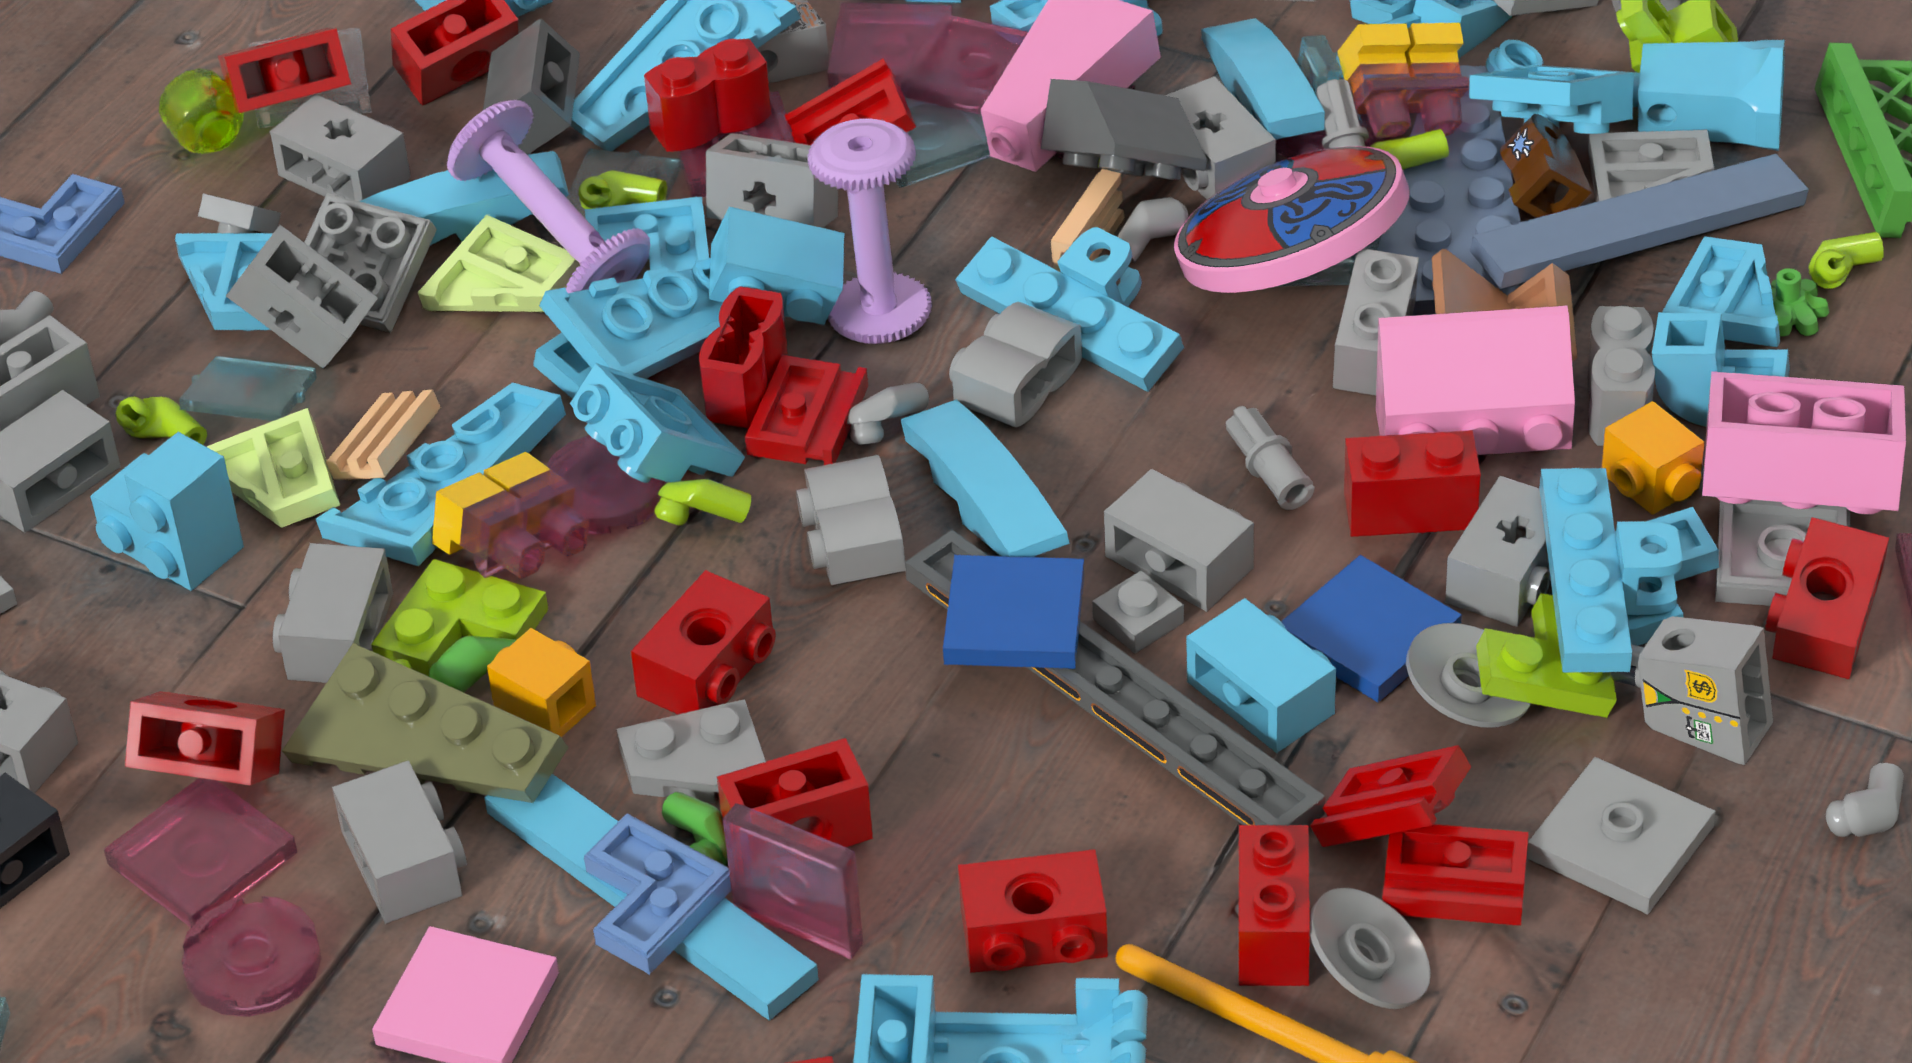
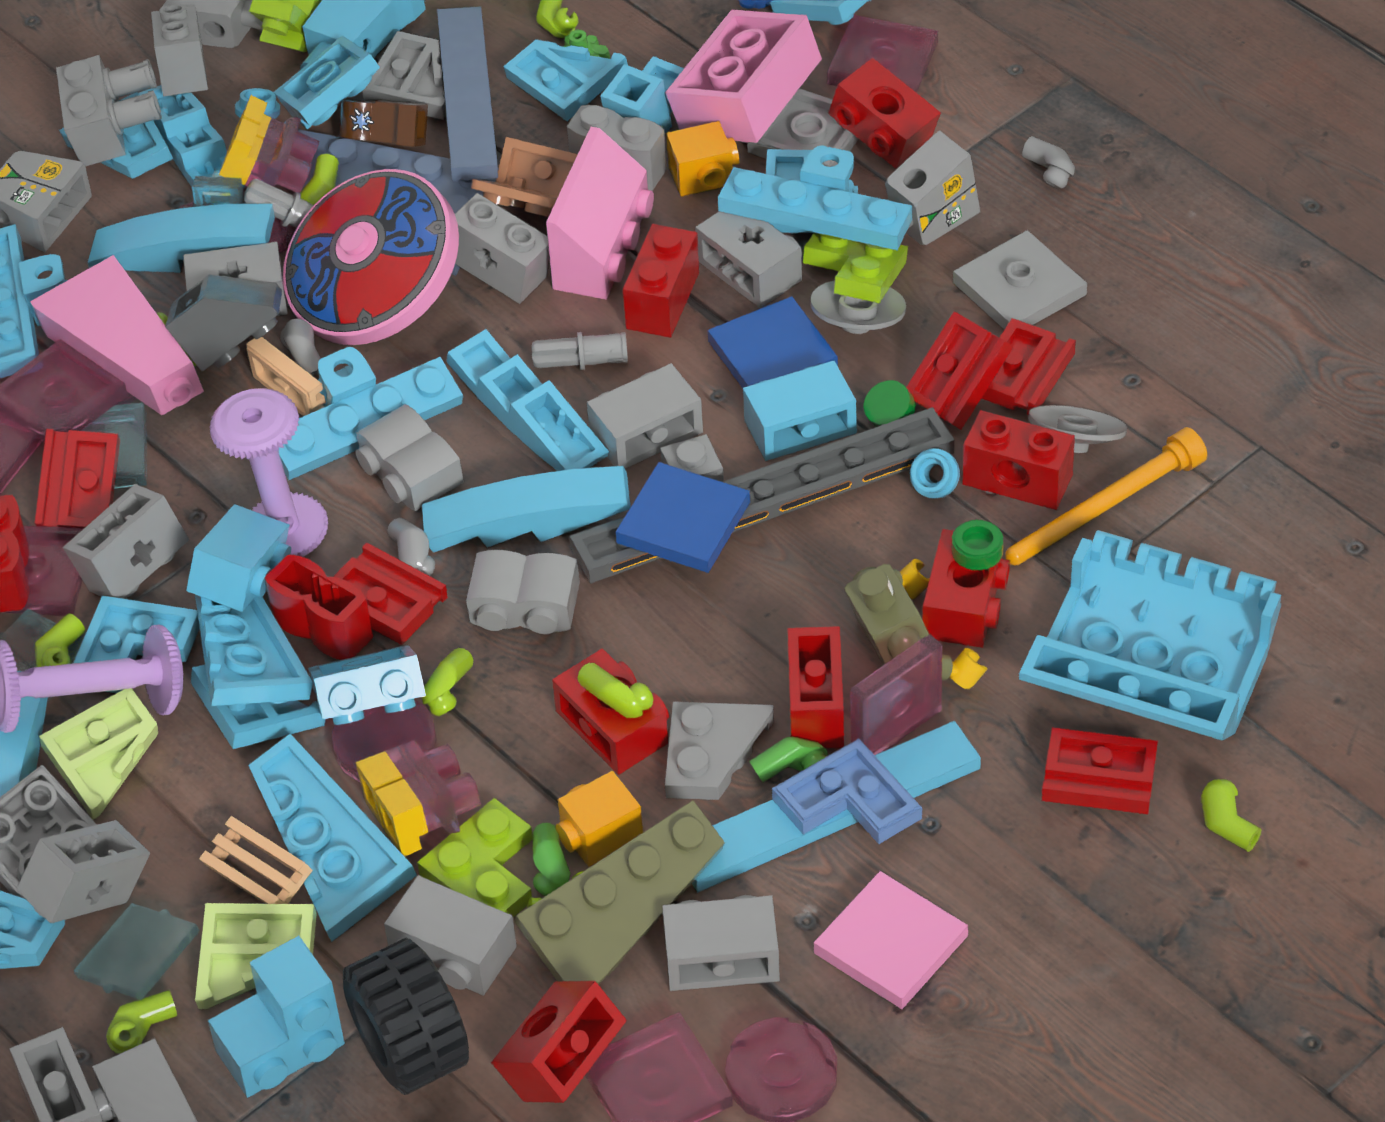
camera: 70 degrees left, 5 degrees up
(179, 592) = (405, 1016): none -> black tyre
(684, 609) = (614, 693): none -> lime arm
(913, 852) = (892, 623): none -> olive torso
(1072, 884) = (977, 545): none -> green tile
(1157, 429) = (525, 405): none -> medium azure slope
(1216, 832) = (921, 468): none -> medium azure plate
(1319, 758) = (888, 402): none -> green tile

